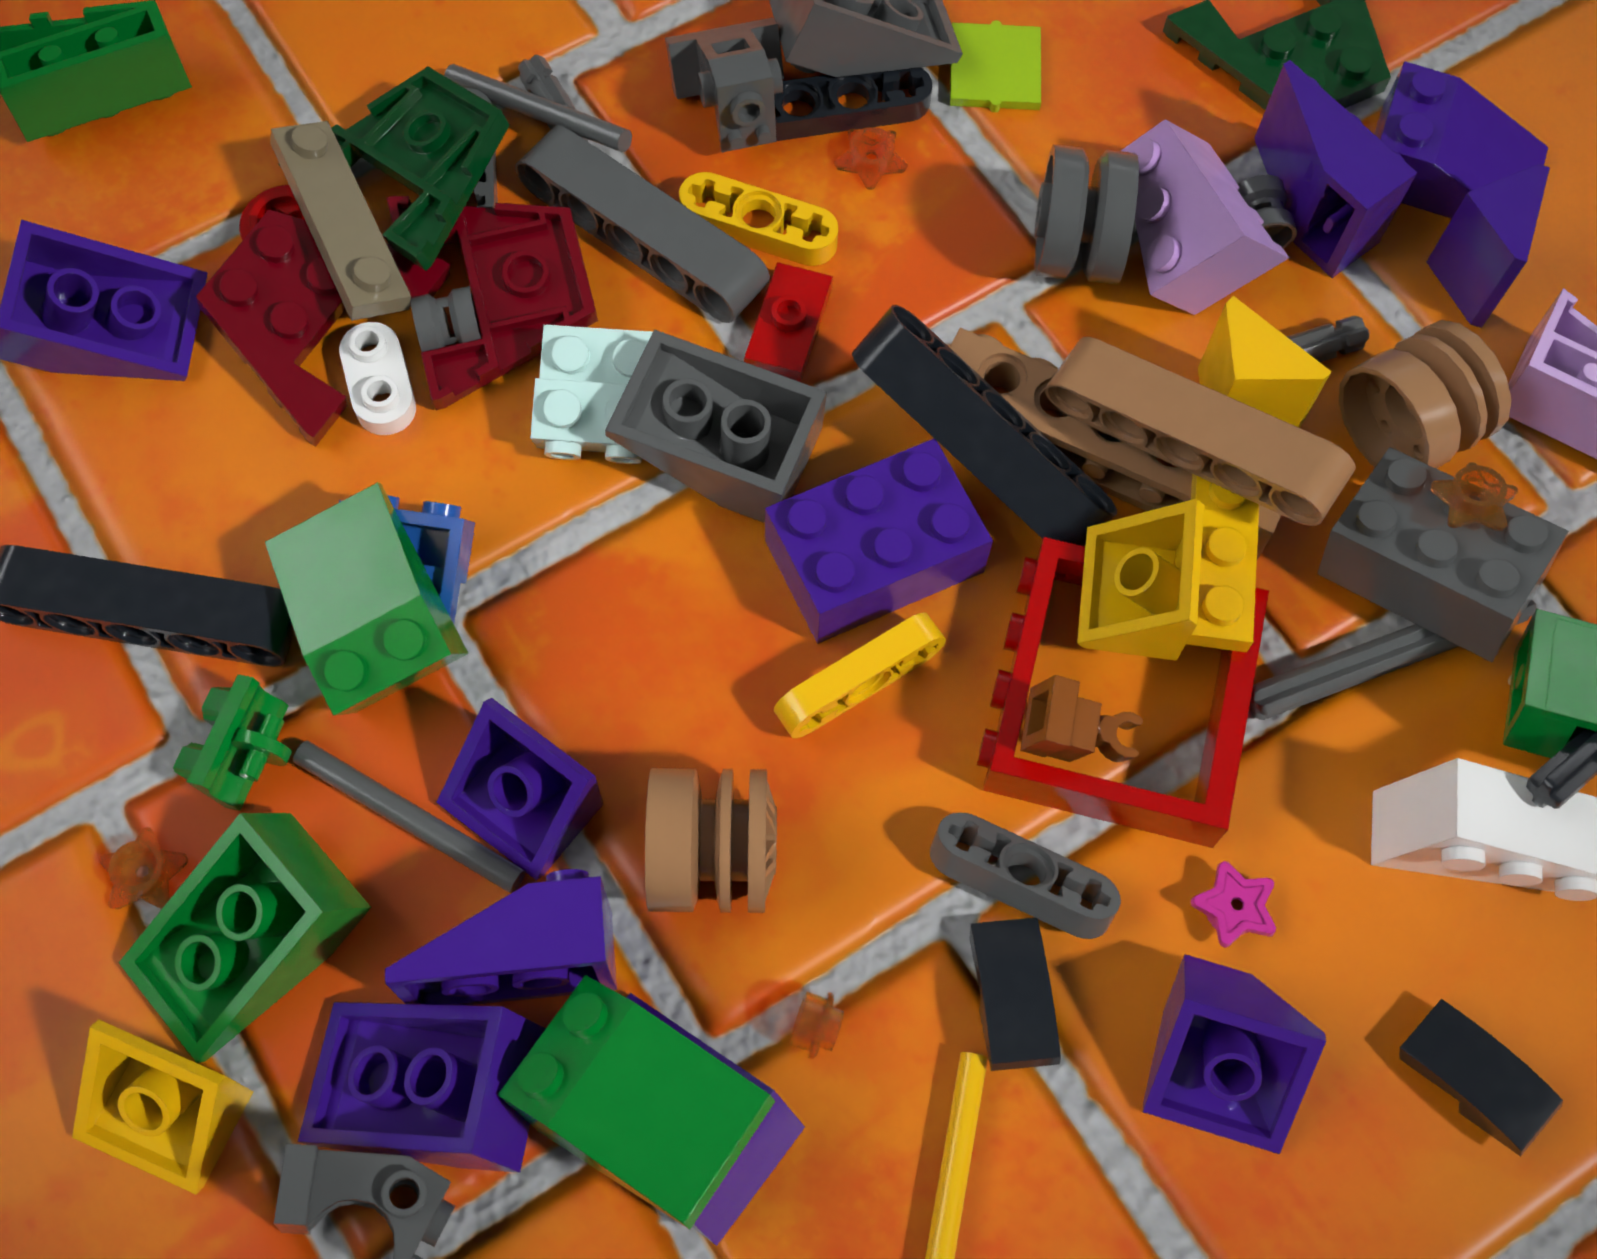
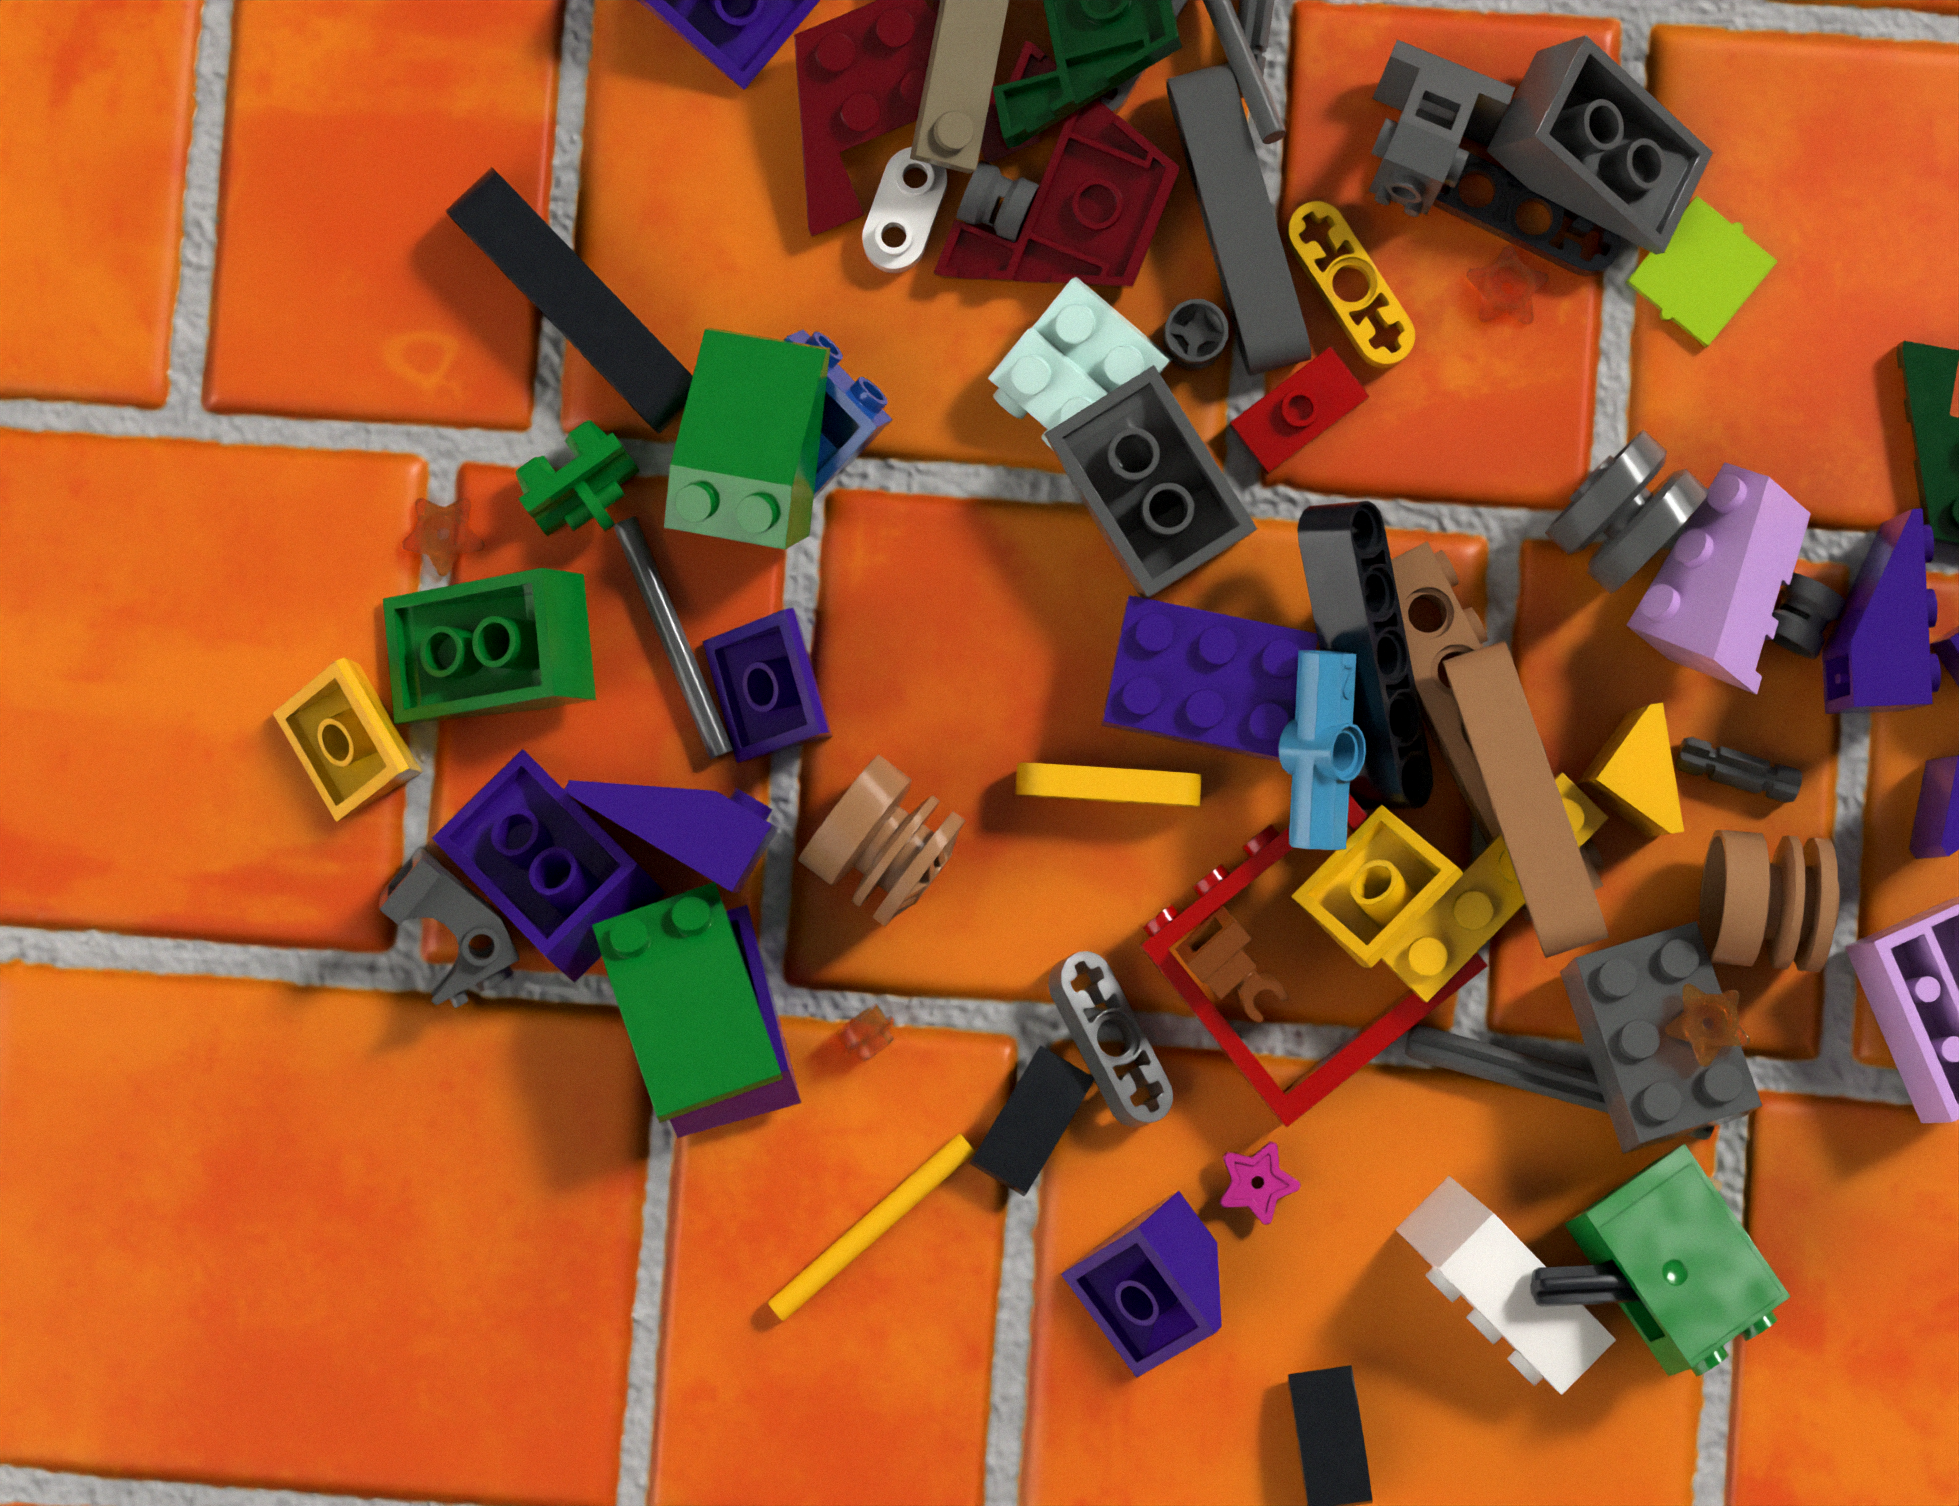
camera: 40 degrees right, 20 degrees up
(670, 306) = (1199, 324): none -> dark grey wheel
(1010, 508) = (1322, 749): none -> dark azure piece

